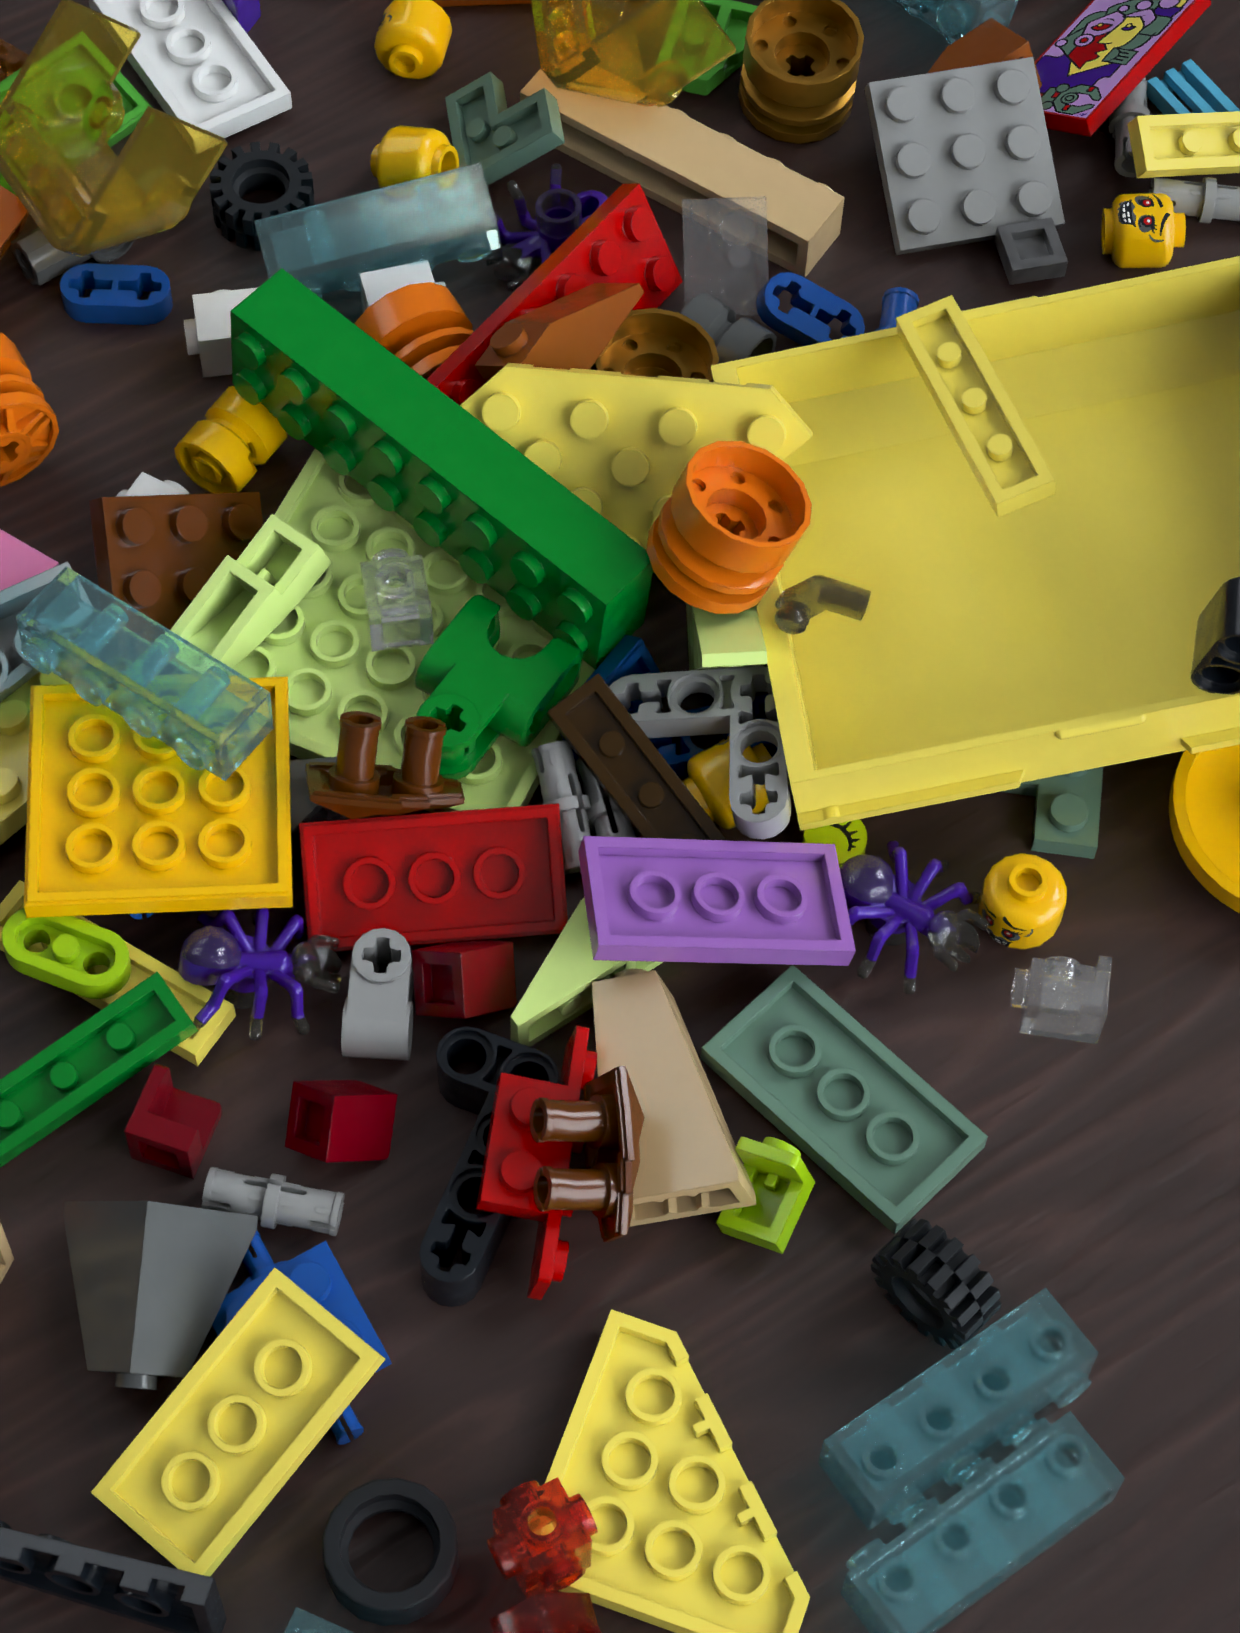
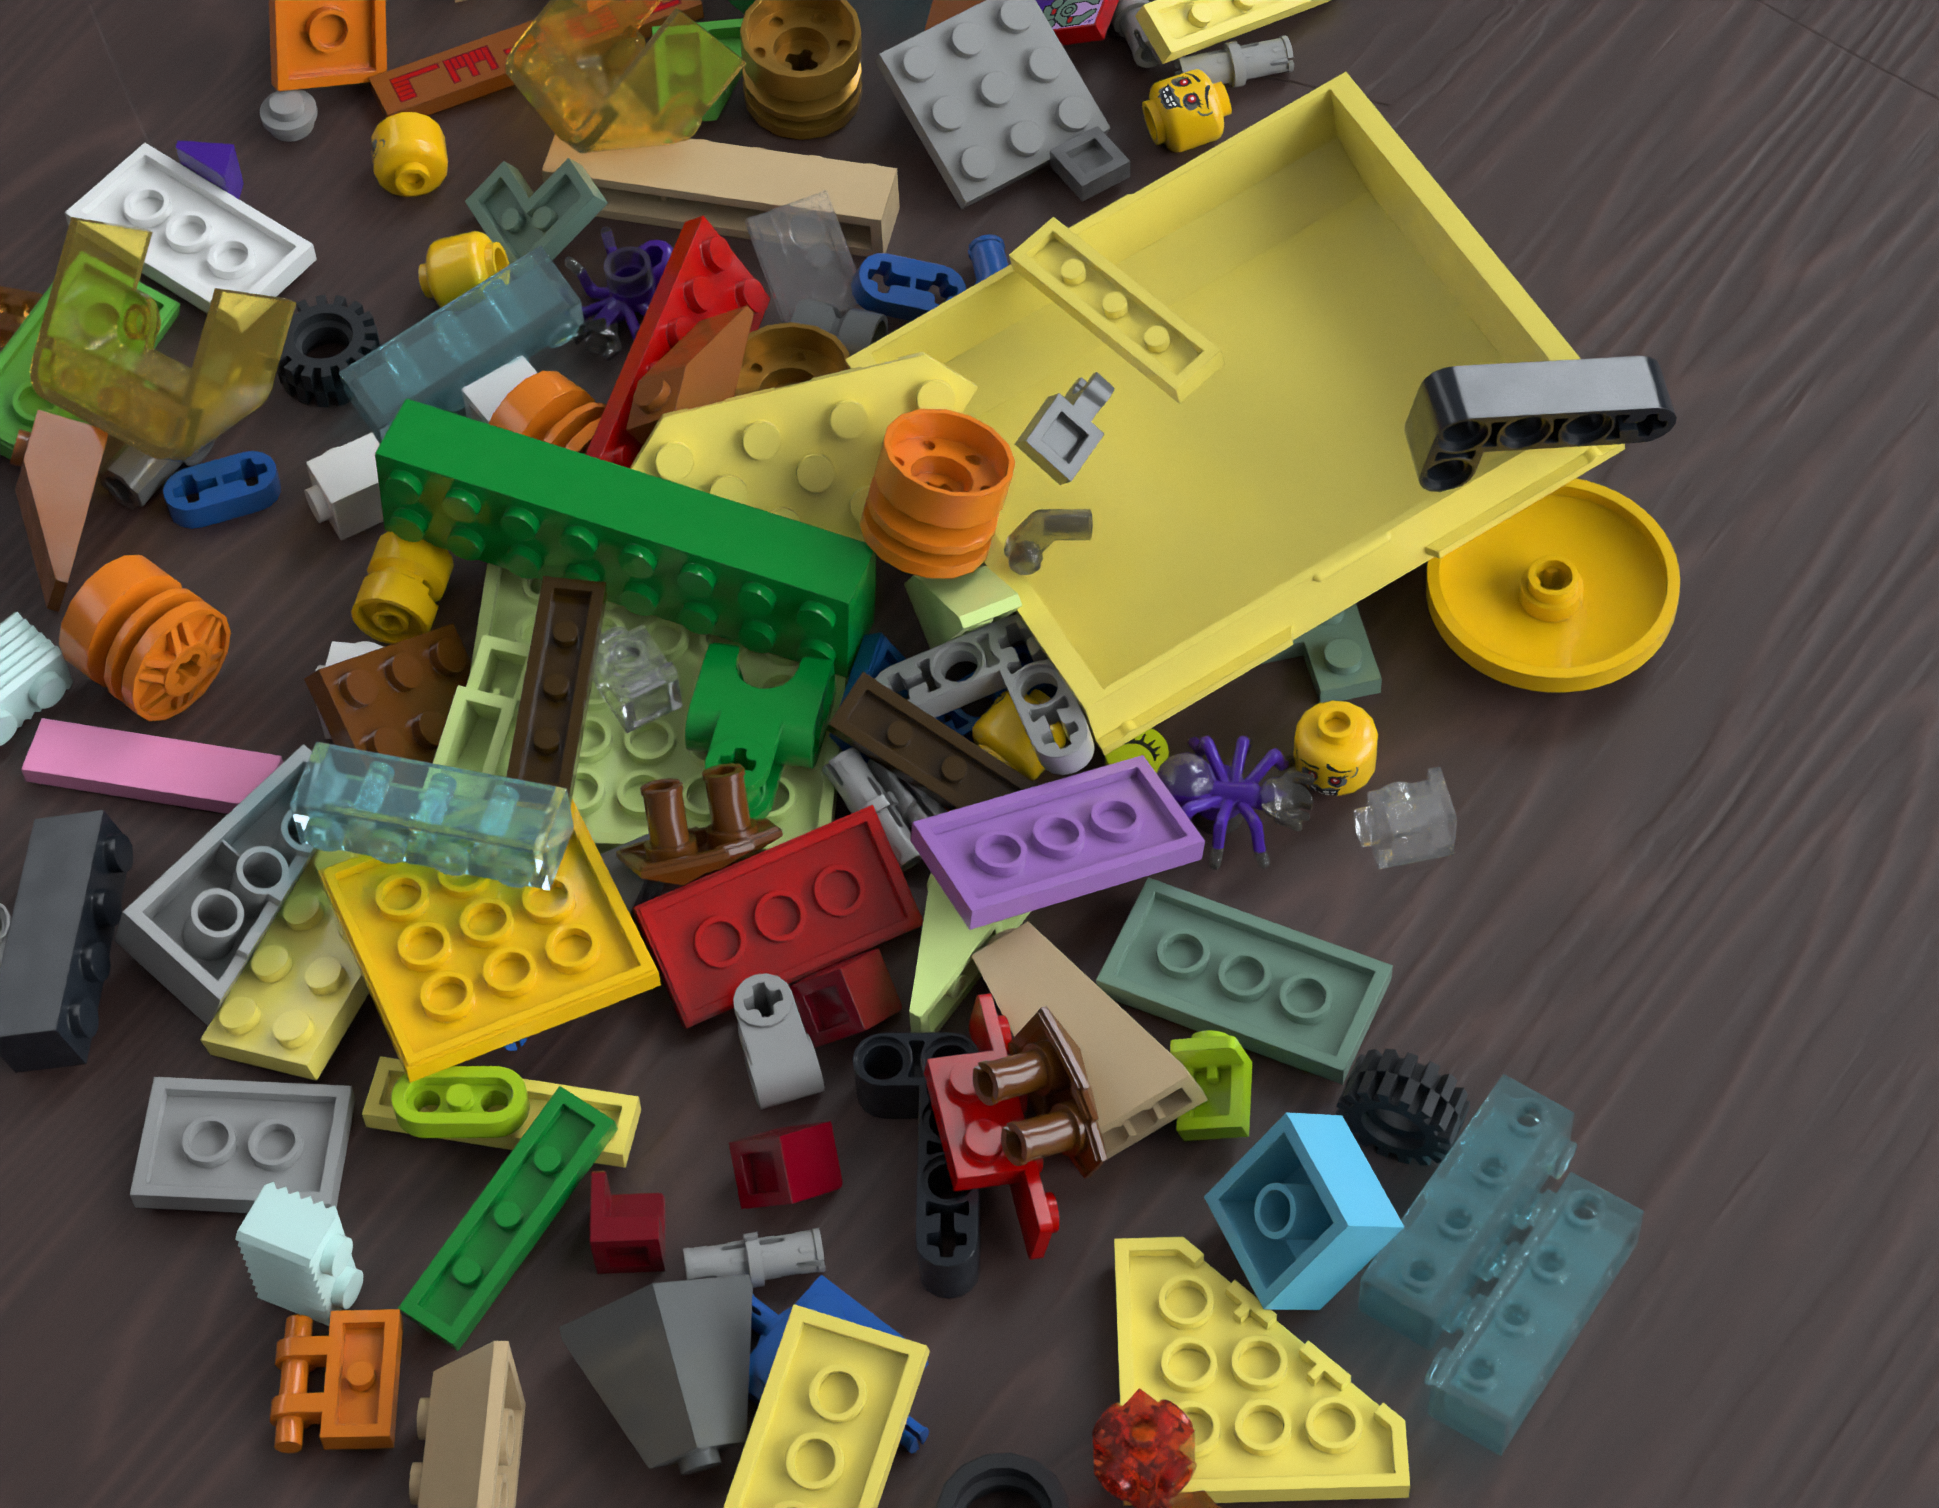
camera: 15 degrees left, 5 degrees down
(243, 964) = (634, 1059): animal -> none
(313, 589) = (558, 682): none -> dark brown plate
(795, 1354) = (1303, 1211): none -> medium azure brick
(875, 505) = (1062, 429): none -> plate

